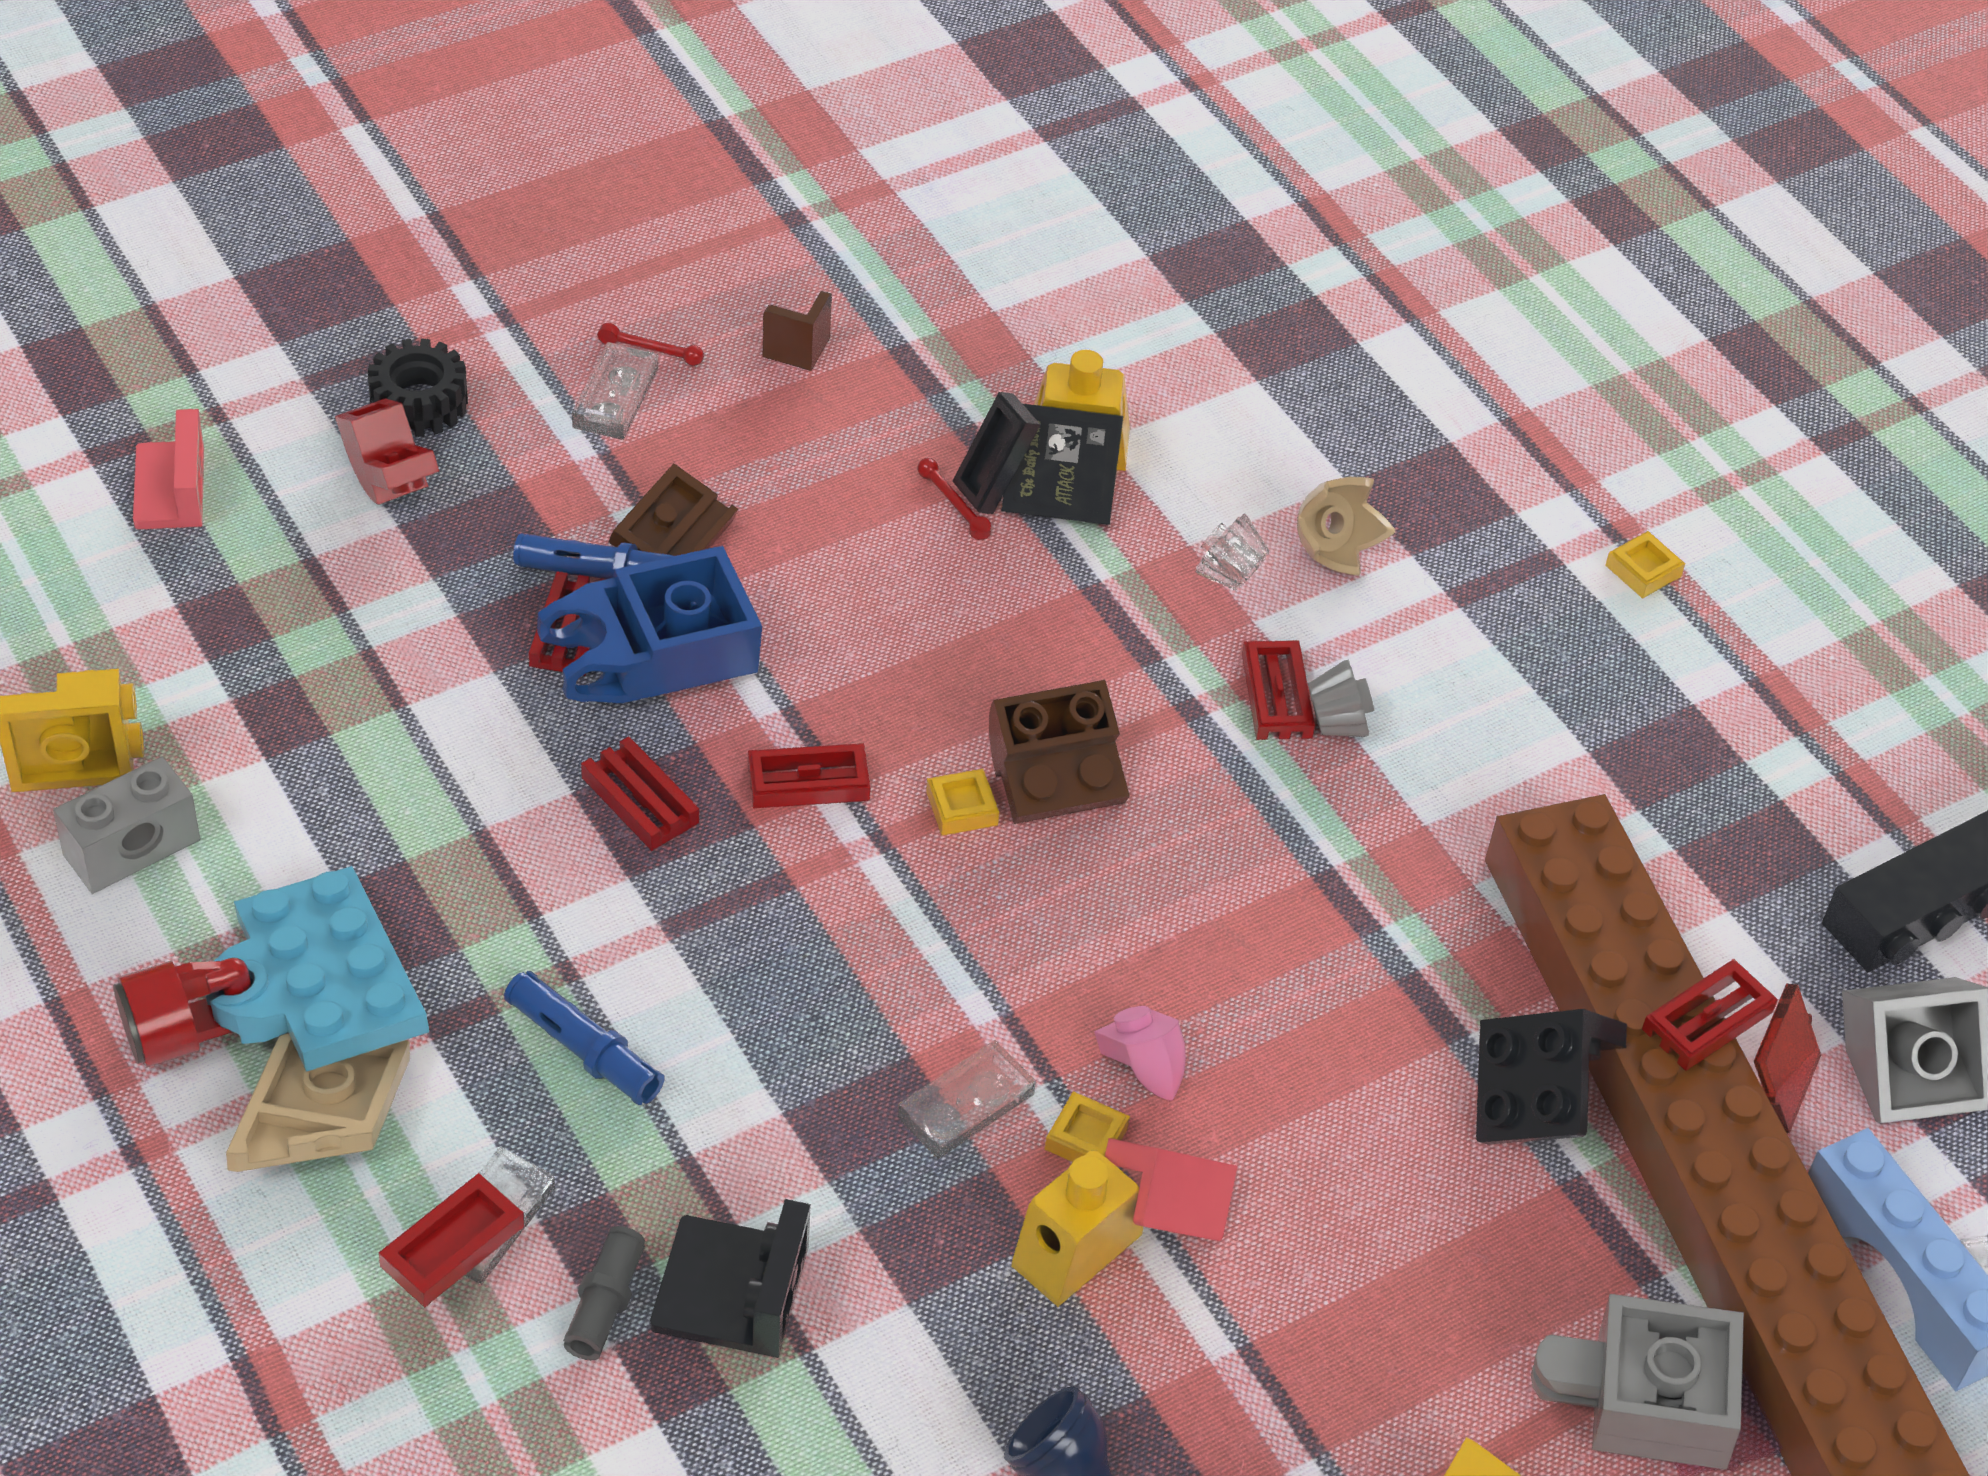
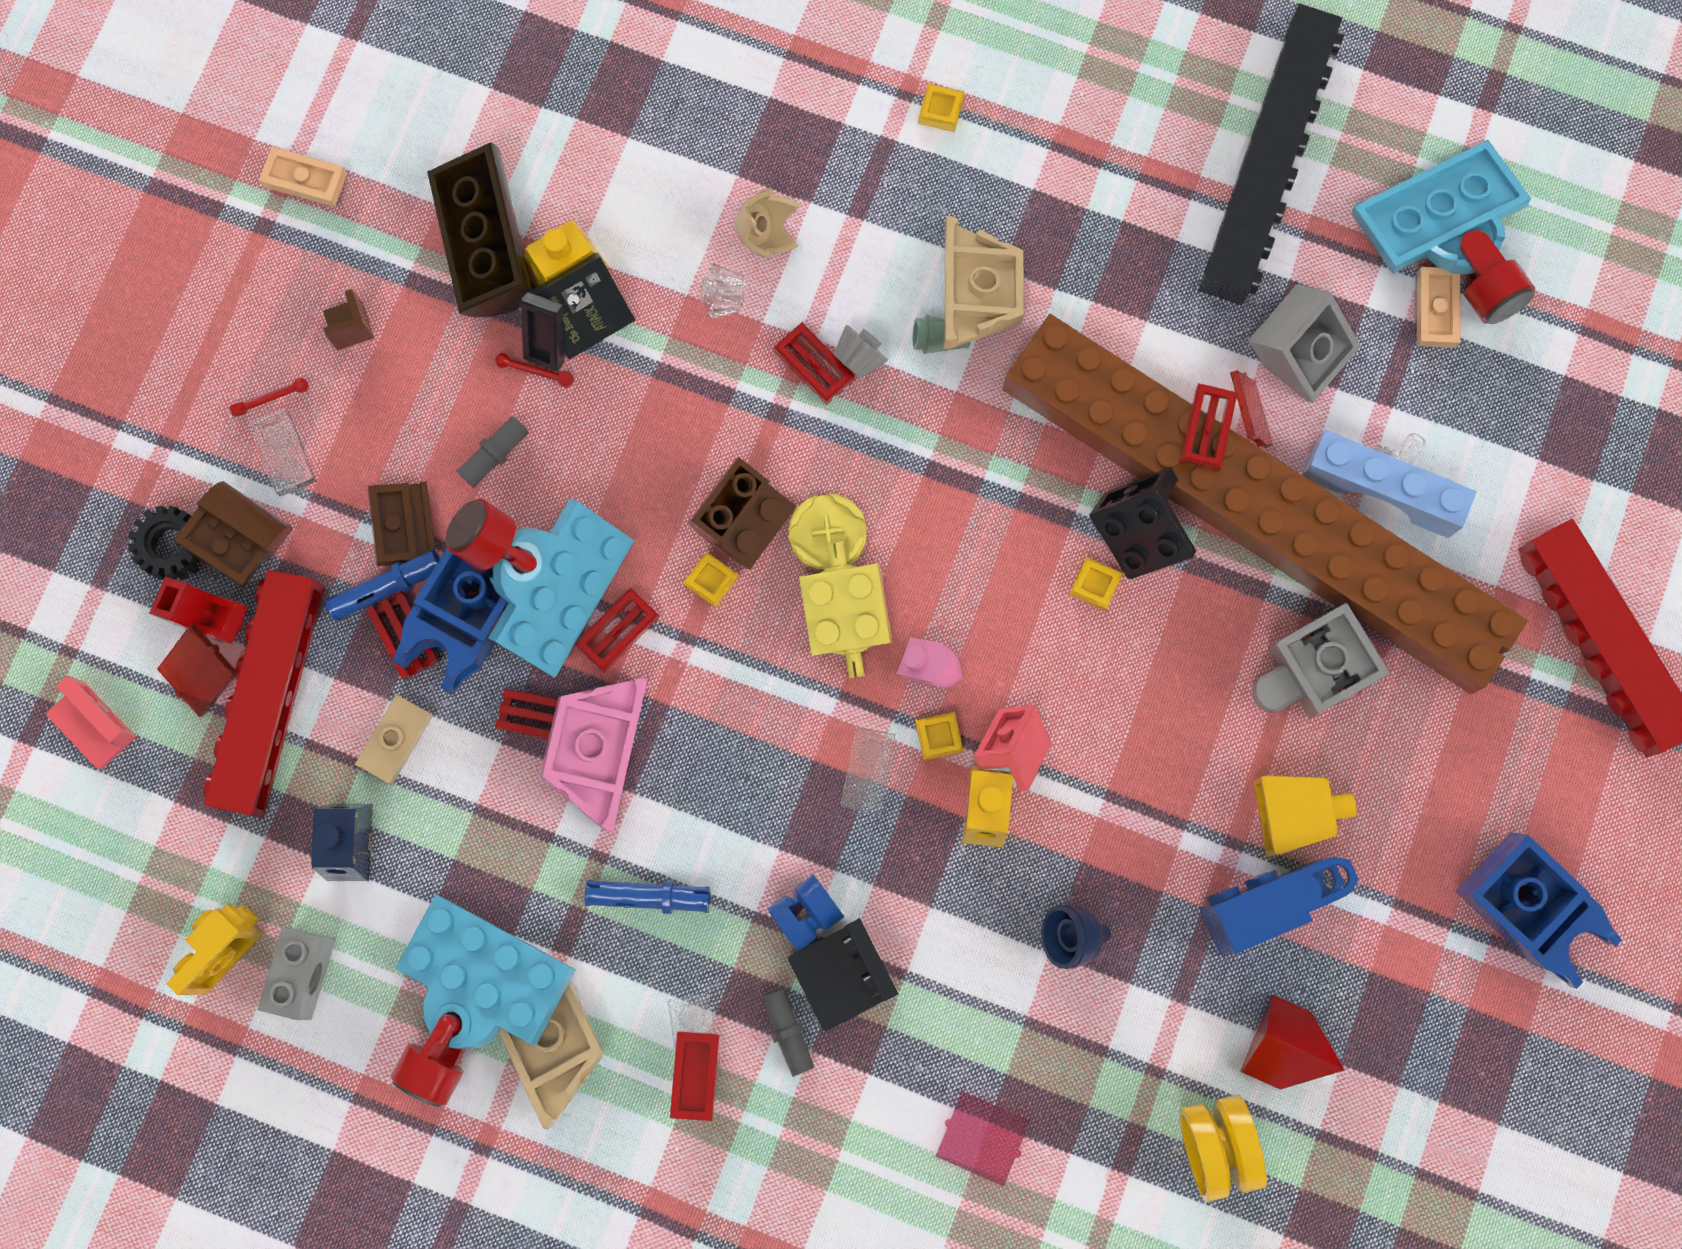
camera: 30 degrees left, 30 degrees up
(307, 739) = (342, 841): none -> dark blue torso
(327, 499) = (197, 670): none -> clear red piece
(369, 569) = (263, 694): none -> red brick
(461, 704) = (394, 739): none -> tan plate
(492, 408) = (232, 533): none -> reddish brown brick
(670, 849) = (593, 747): none -> bright pink wing
(748, 1176) = (817, 903): none -> blue wheel
(778, 652) = (544, 576): none -> medium azure plate
(836, 530) = (492, 451): none -> dark grey pin
(876, 198) = (303, 176): none -> light nougat plate
(1013, 339) = (480, 233): none -> dark brown brick
(1092, 925) = (845, 609): none -> light yellow plate
(1142, 850) = (826, 521): none -> light yellow tile
(1429, 1116) = (1095, 584): none -> yellow tile
(1453, 751) = (929, 335): none -> sand green cone
(1542, 733) = (980, 285): none -> tan wing

